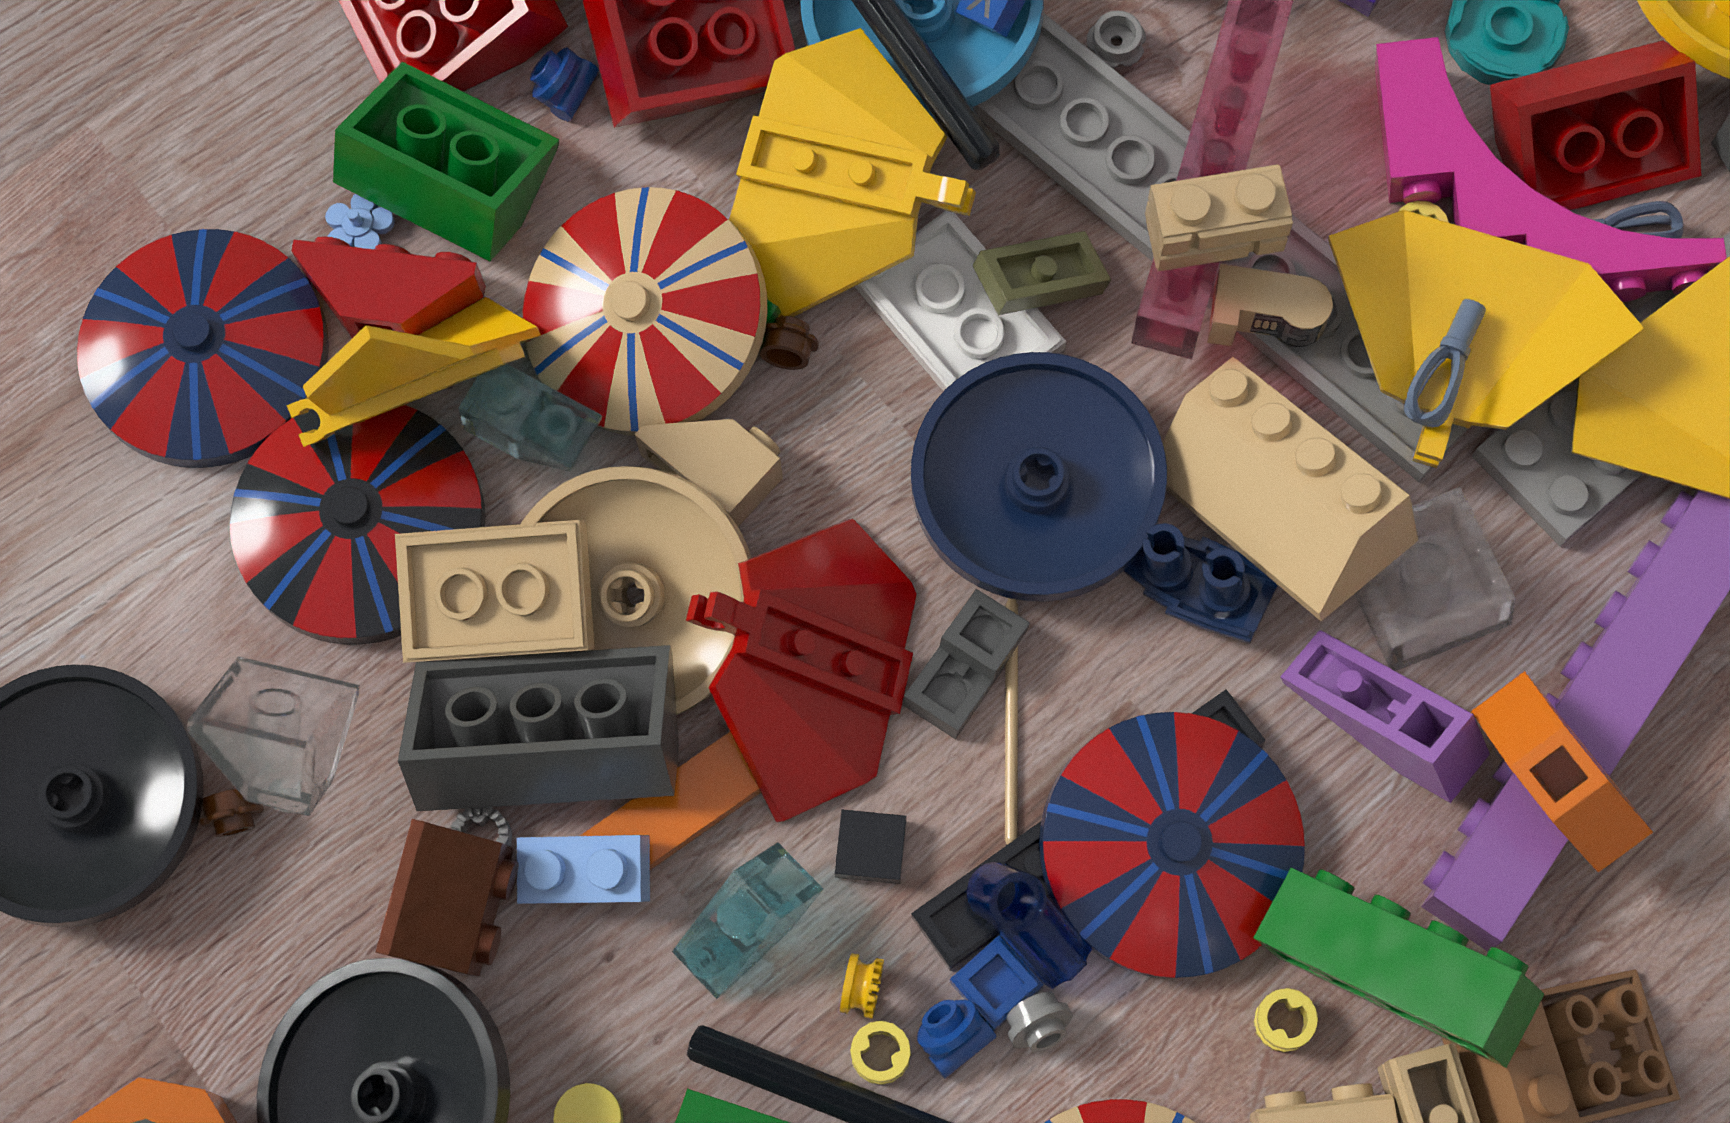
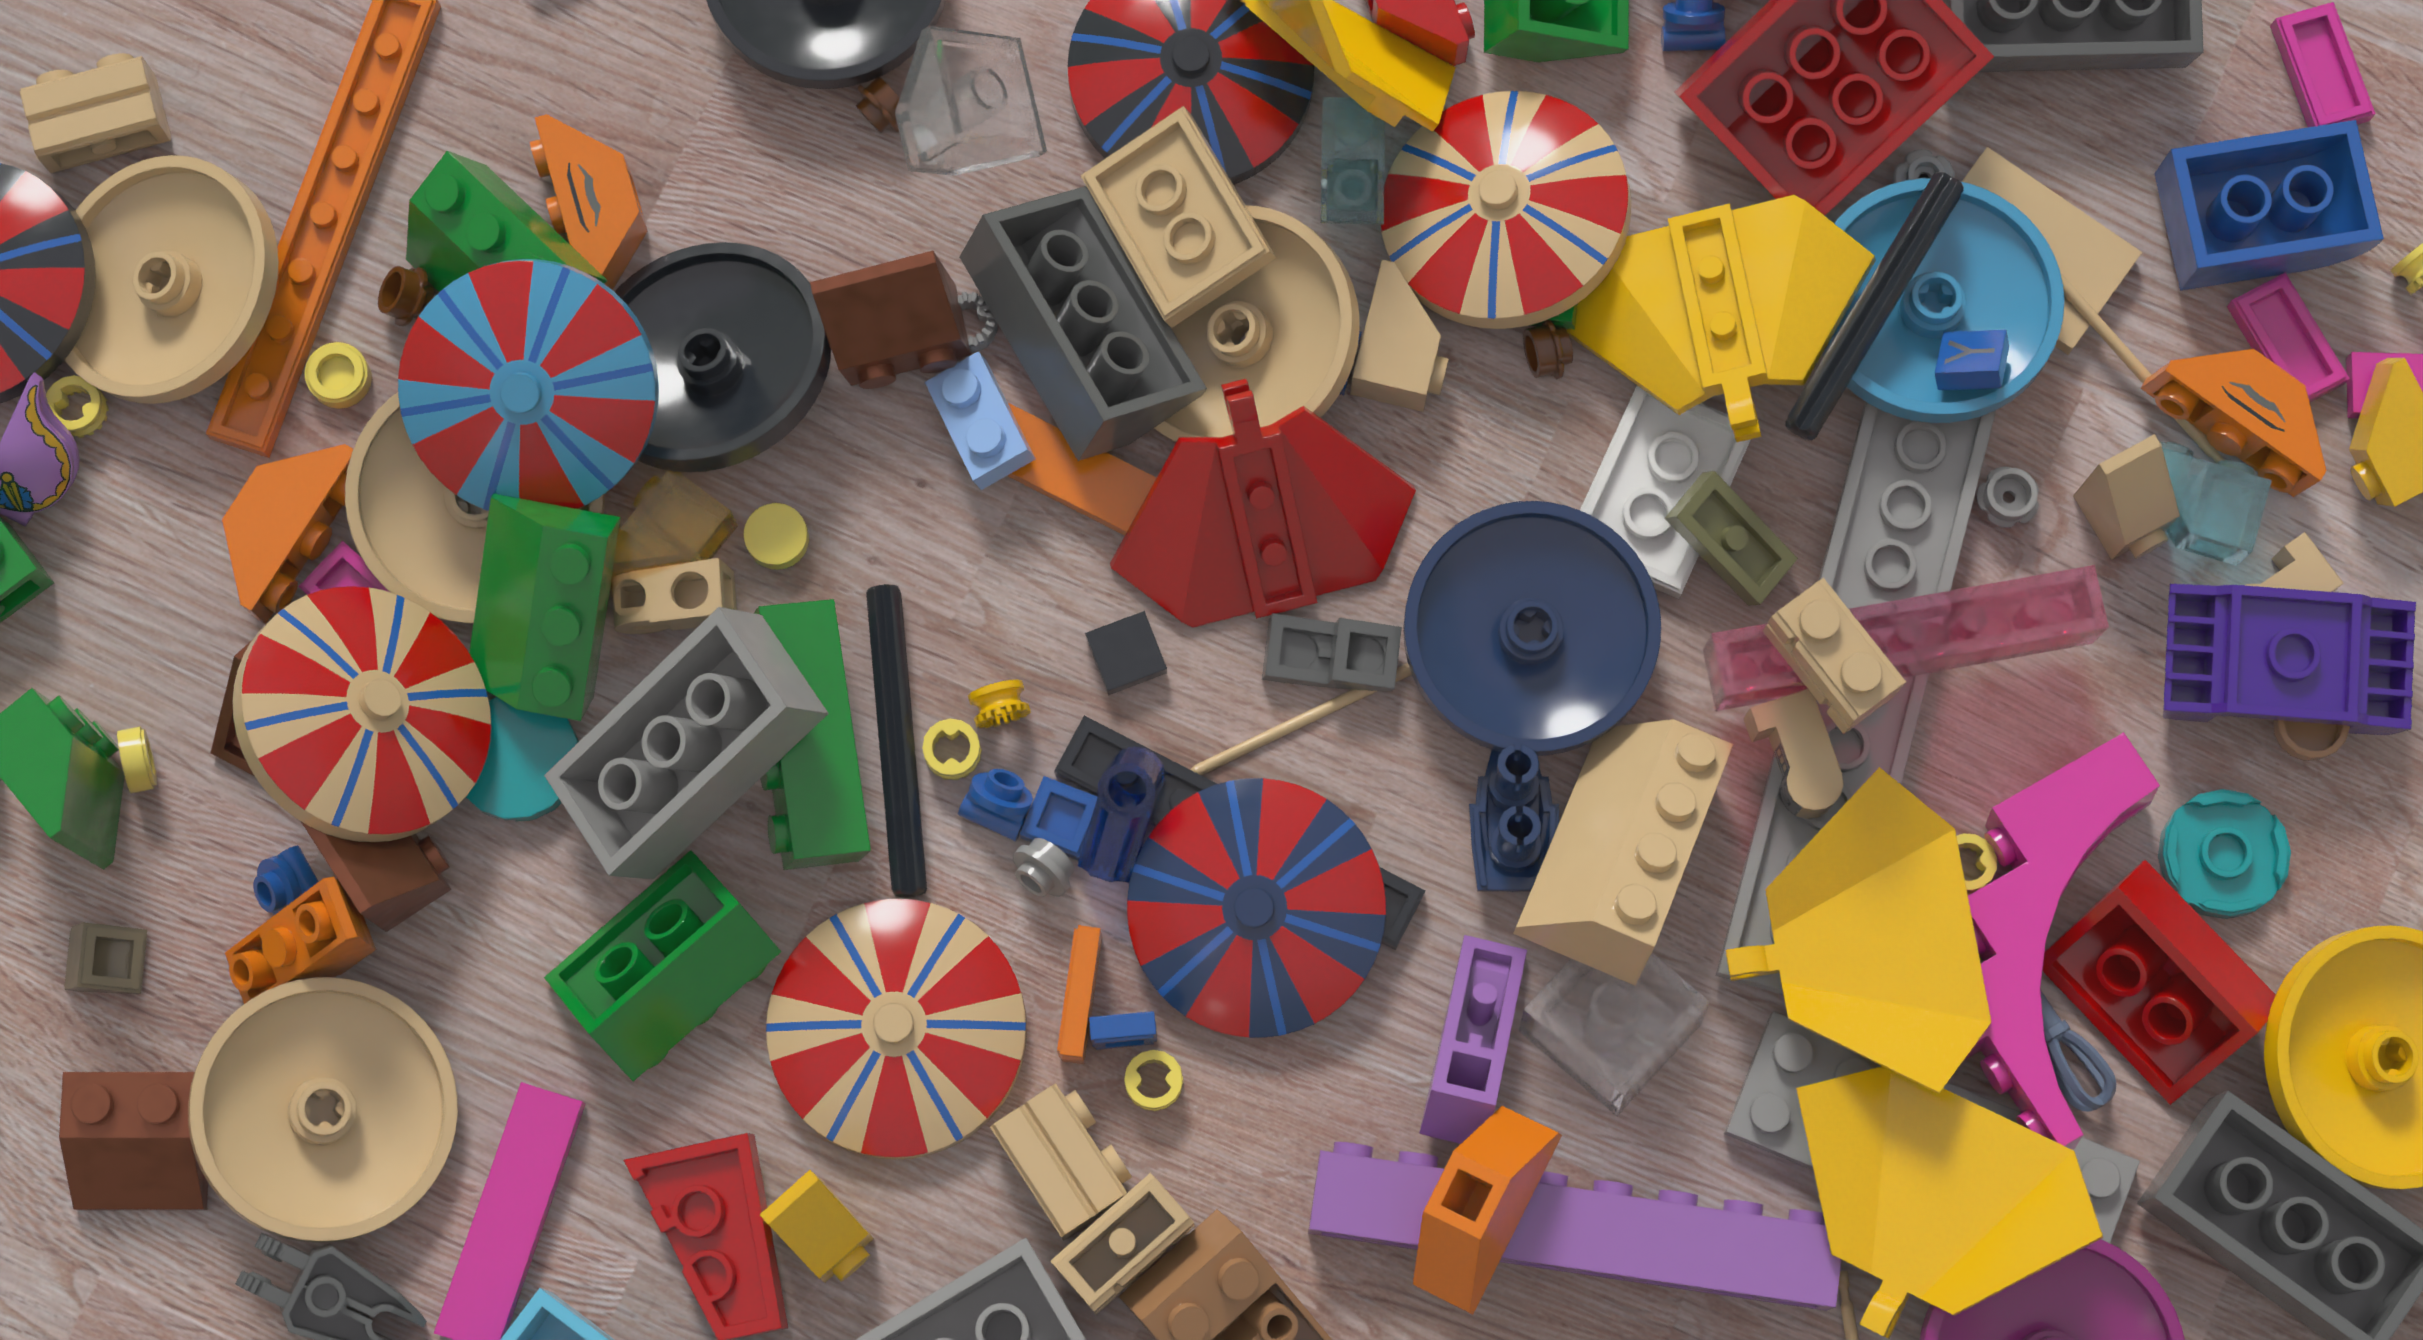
camera: 60 degrees right, 5 degrees up
(747, 918) = (1008, 578): clear light blue slope -> none
(1176, 1047) = (1079, 994): none -> orange tile
(1229, 1023) = (1123, 1030): none -> blue tile
(1400, 965) = (1235, 1140): green brick -> none
(1455, 347) = (1840, 935): sand blue piece -> none

